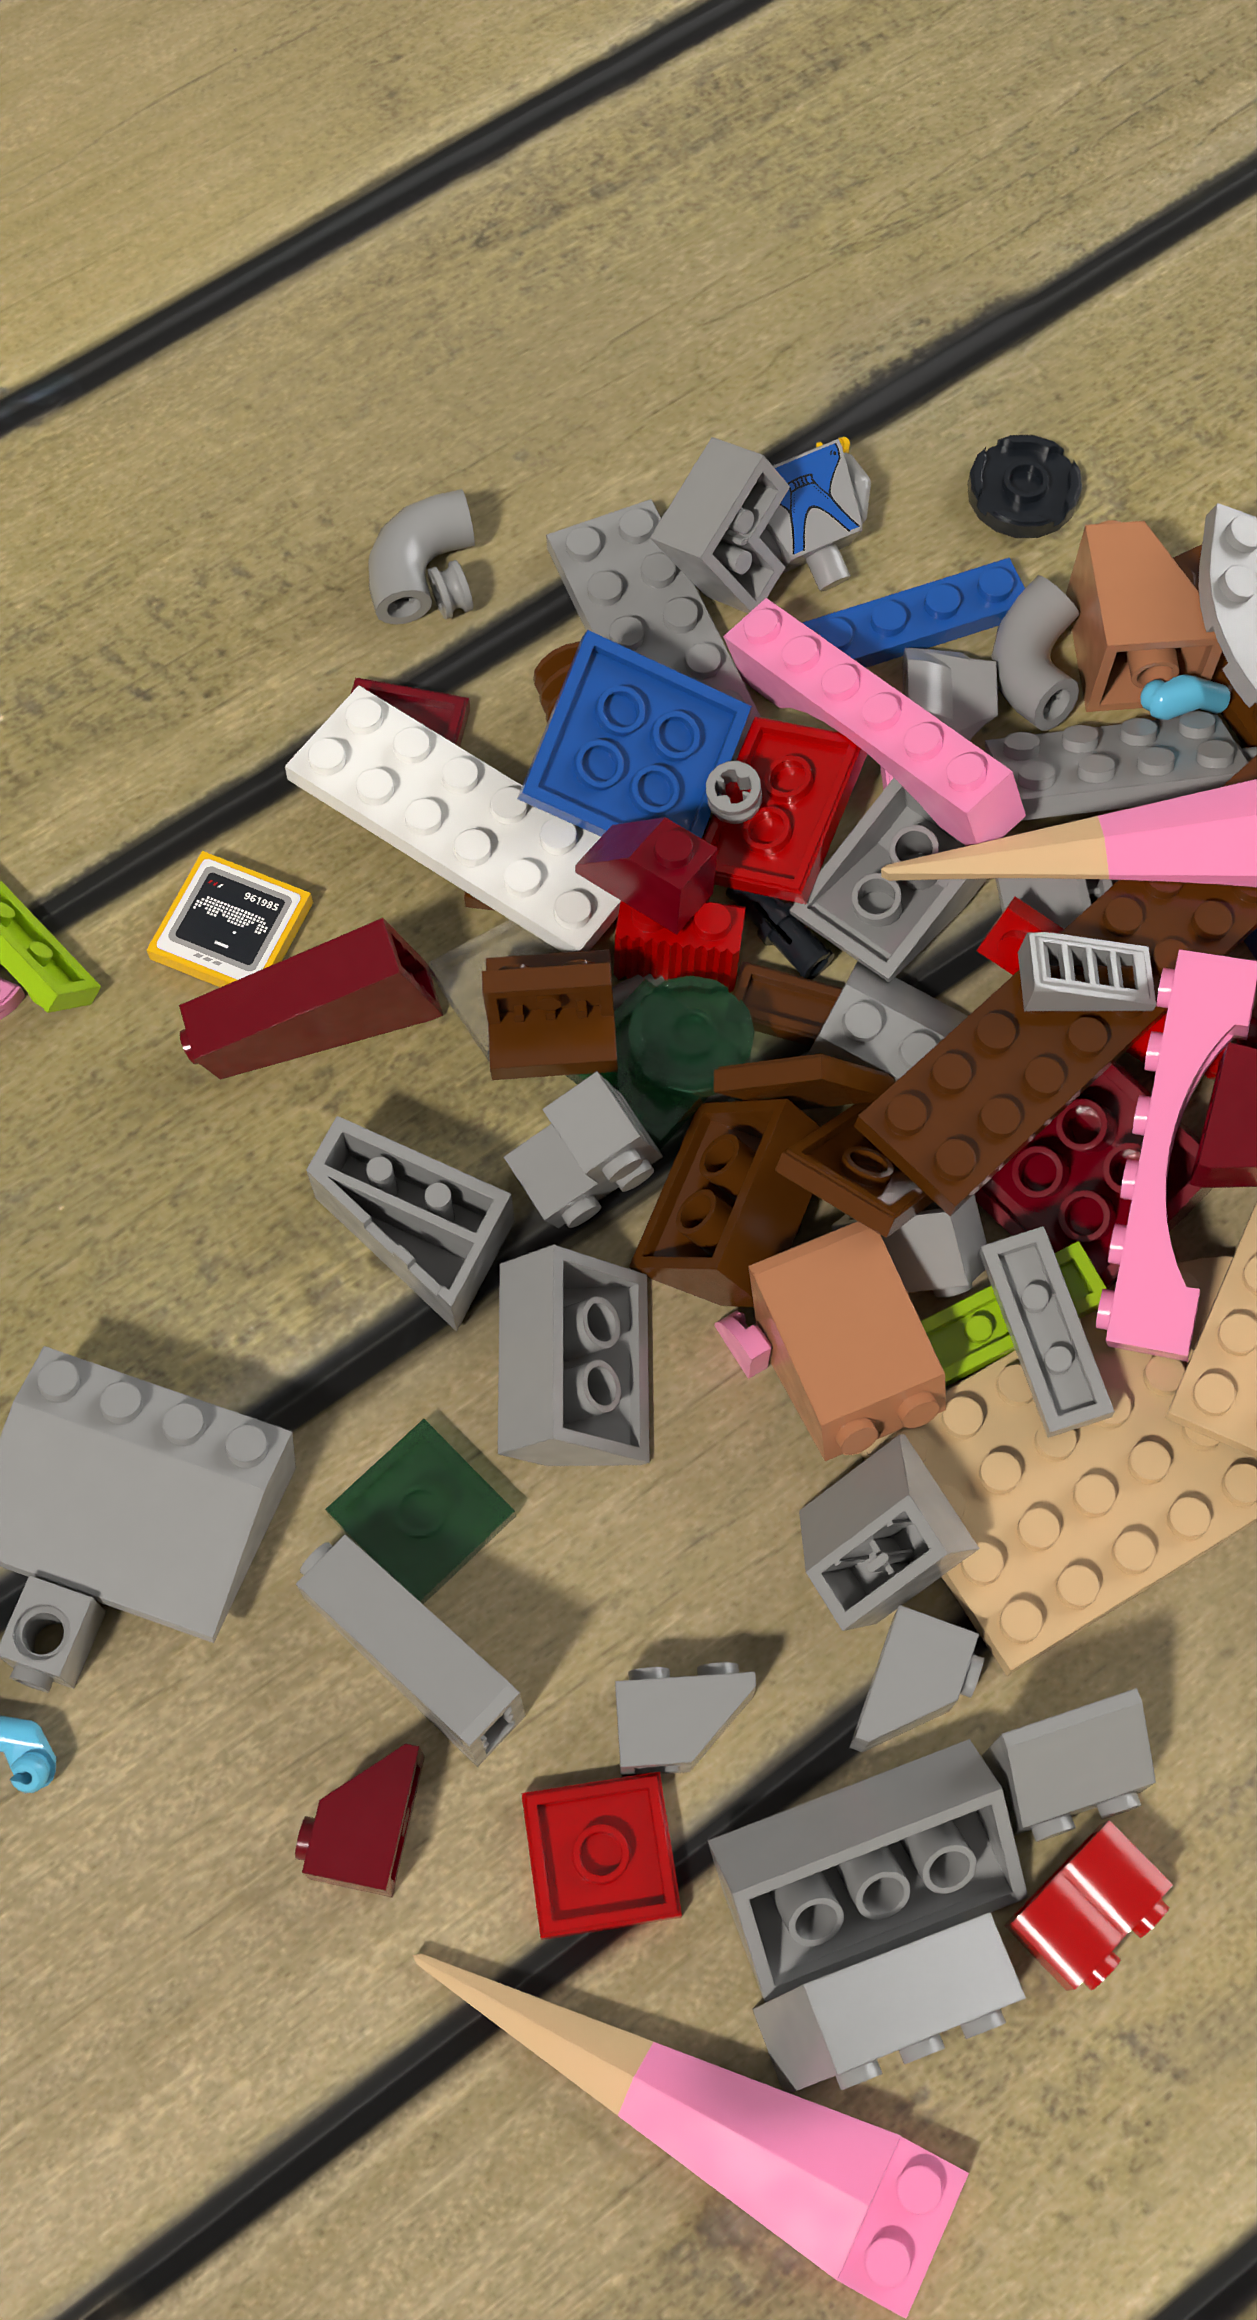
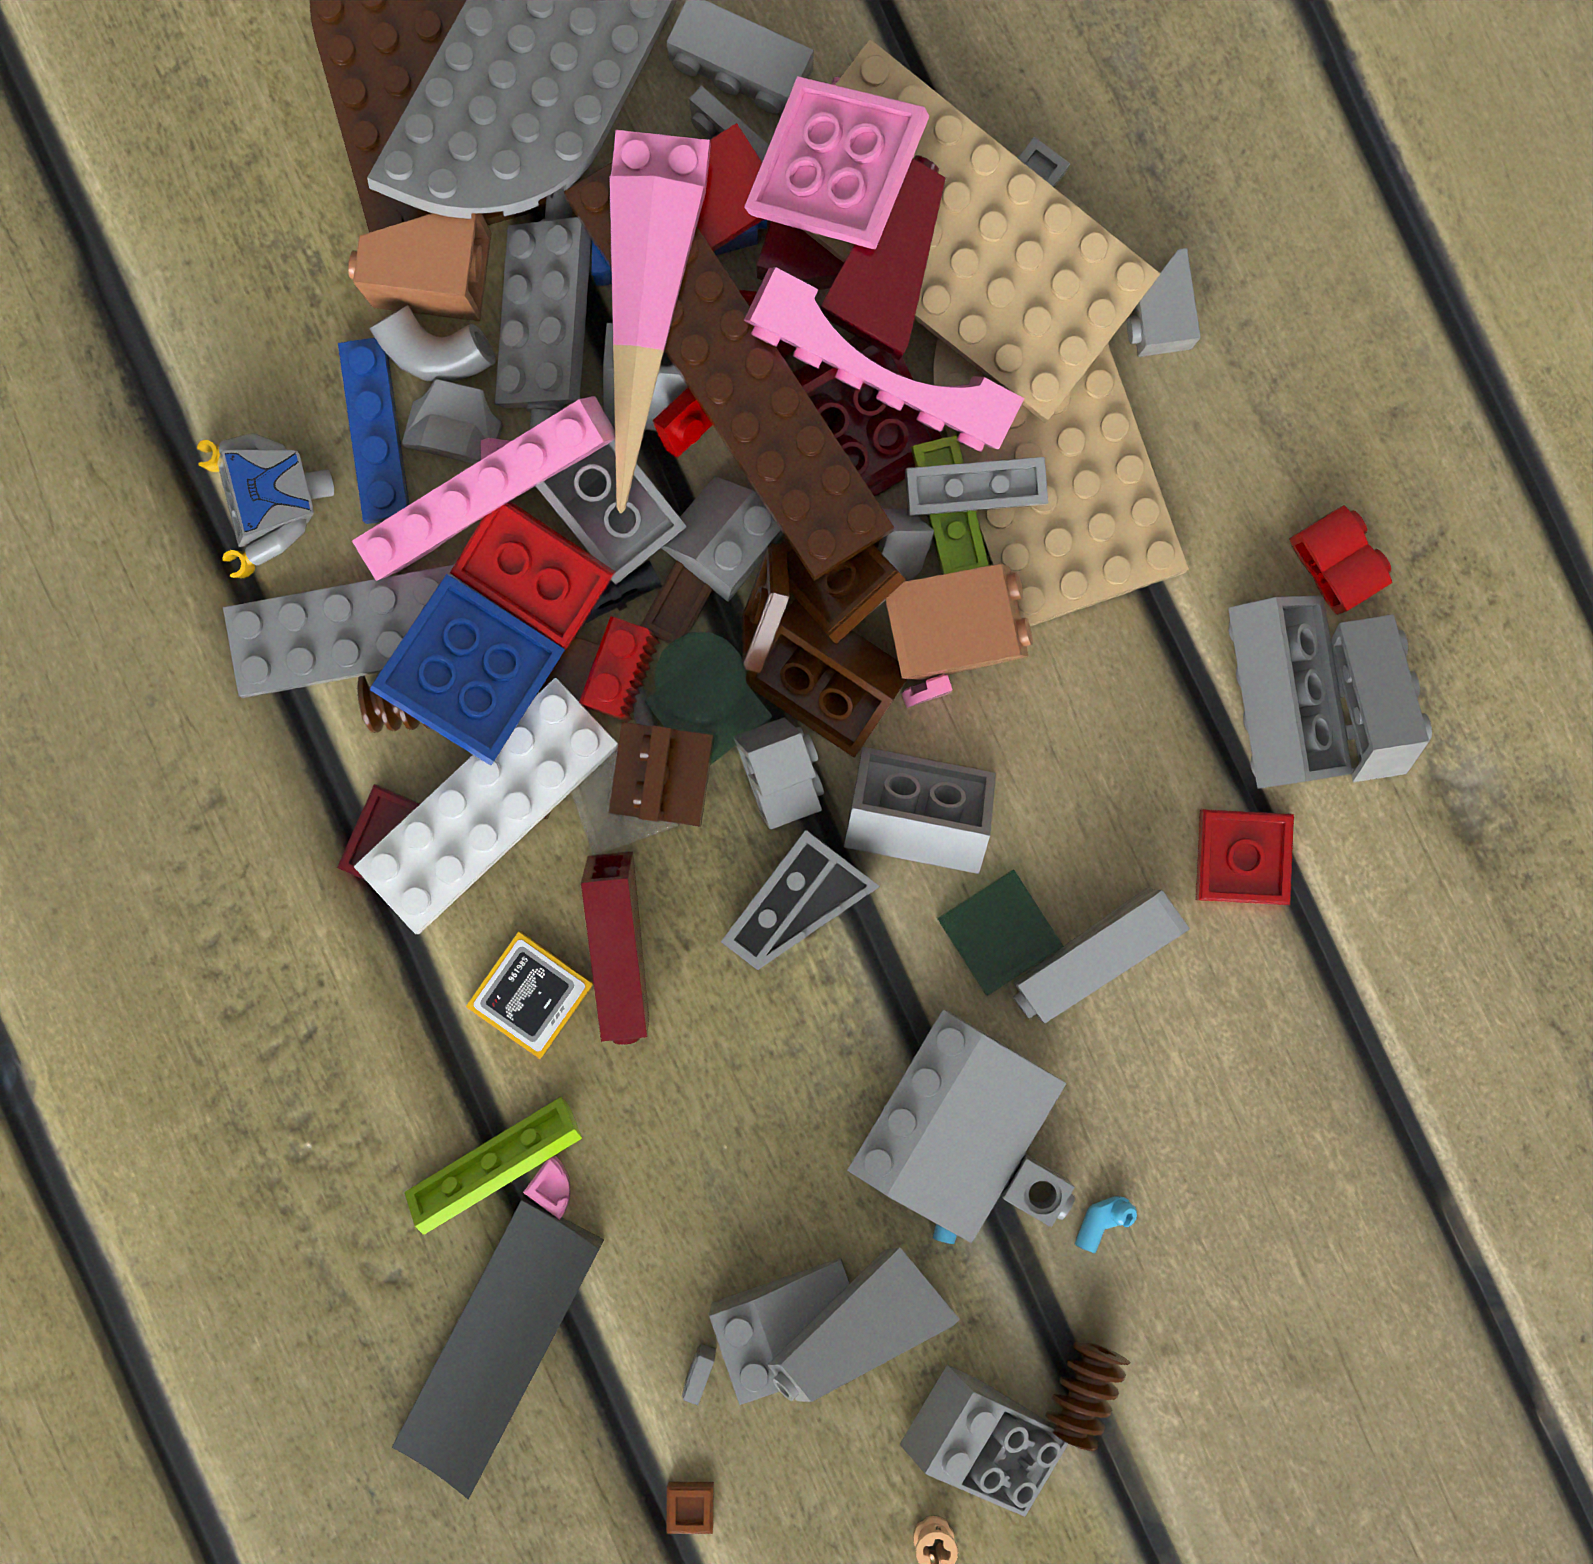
camera: 80 degrees left, 20 degrees up
(363, 1826) = (1203, 1005): dark red slope -> none
(406, 548) = (229, 808): light grey cylinder -> none
(450, 589) = (274, 780): light grey bush -> none
(653, 869) = (577, 681): dark red slope -> none
(675, 1720) = (1176, 790): light grey slope -> none
(718, 522) = (283, 560): light grey brick -> none
(746, 779) = (509, 593): light grey bush -> none
(816, 2178) = (1469, 758): bright pink plate -> none
(880, 1536) = (1089, 632): light grey slope -> none
(916, 1677) = (1180, 633): light grey slope -> none
(1024, 486) = (270, 312): black tile -> none
(1065, 994) = (736, 424): light grey slope -> none
(1074, 1764) = (1257, 547): light grey slope -> none
(1182, 696) = (498, 247): medium azure arm -> none

